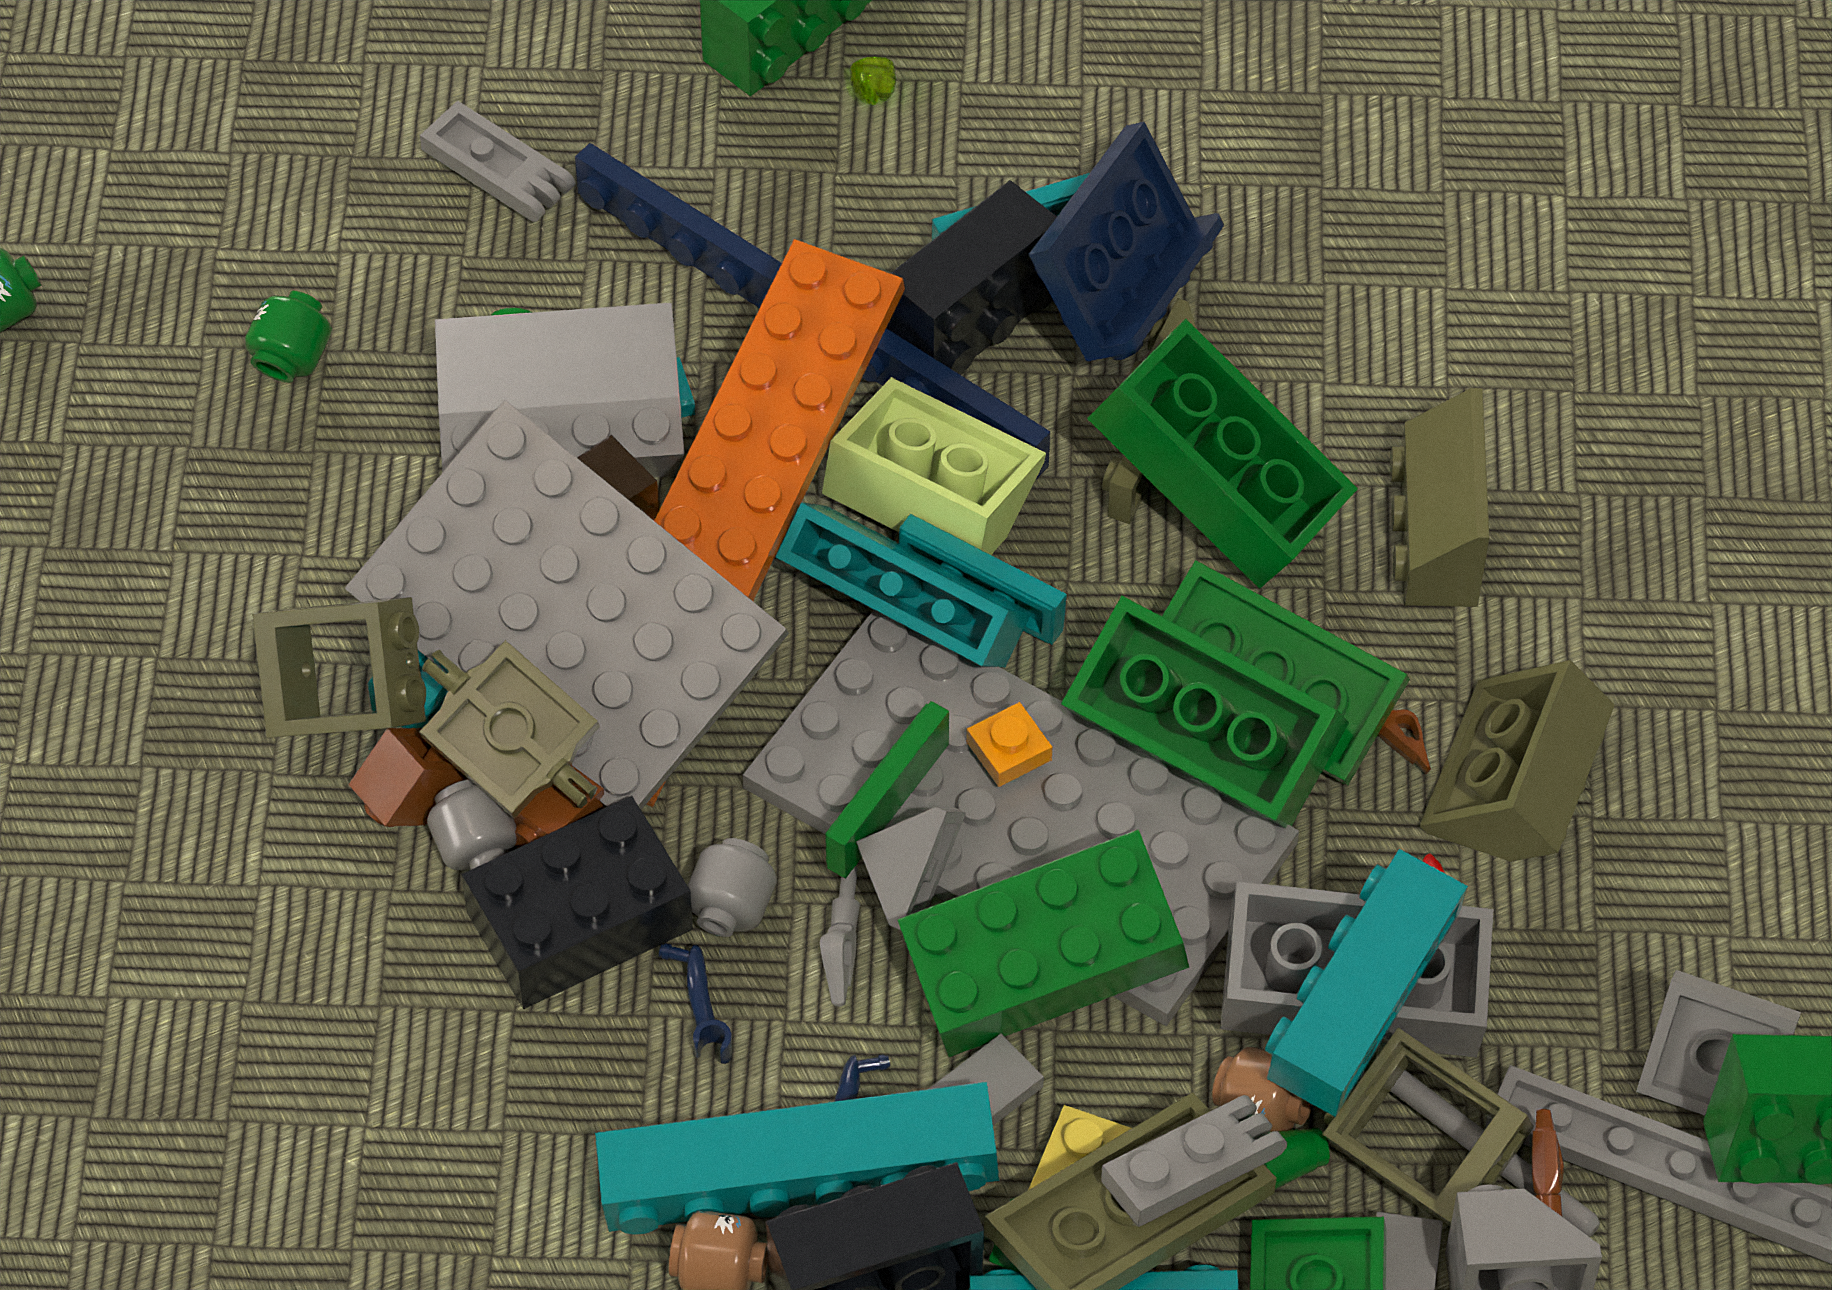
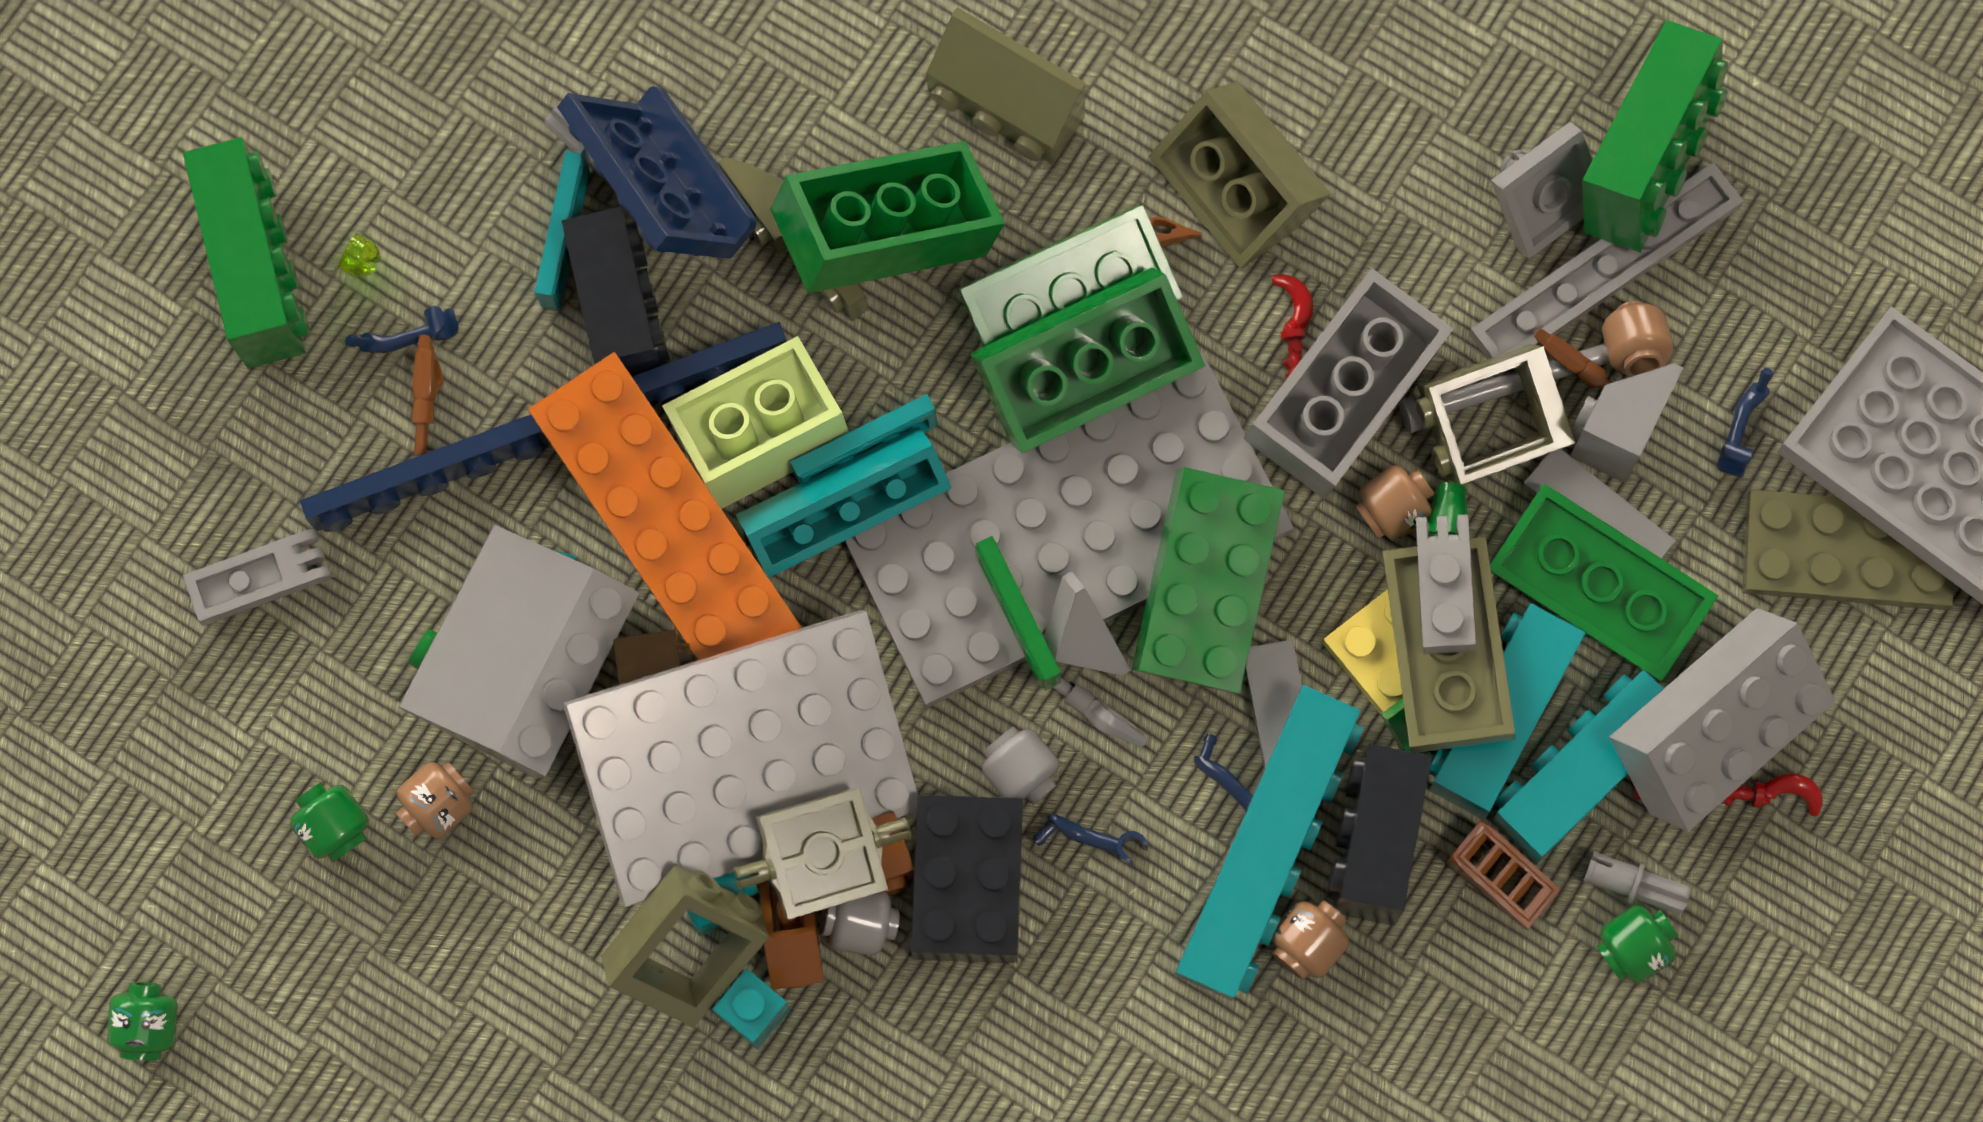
camera: 55 degrees left, 20 degrees up
(317, 780) = (752, 1009): none -> teal brick
(365, 407) = (434, 800): none -> medium nougat head
(786, 195) = (426, 385): none -> dark orange hand
(847, 179) = (439, 326): none -> dark blue piece
(1009, 744) = (1023, 507): light orange plate -> none
(1365, 981) = (1389, 388): teal brick -> none
(1629, 1232) = (1637, 338): none -> medium nougat head

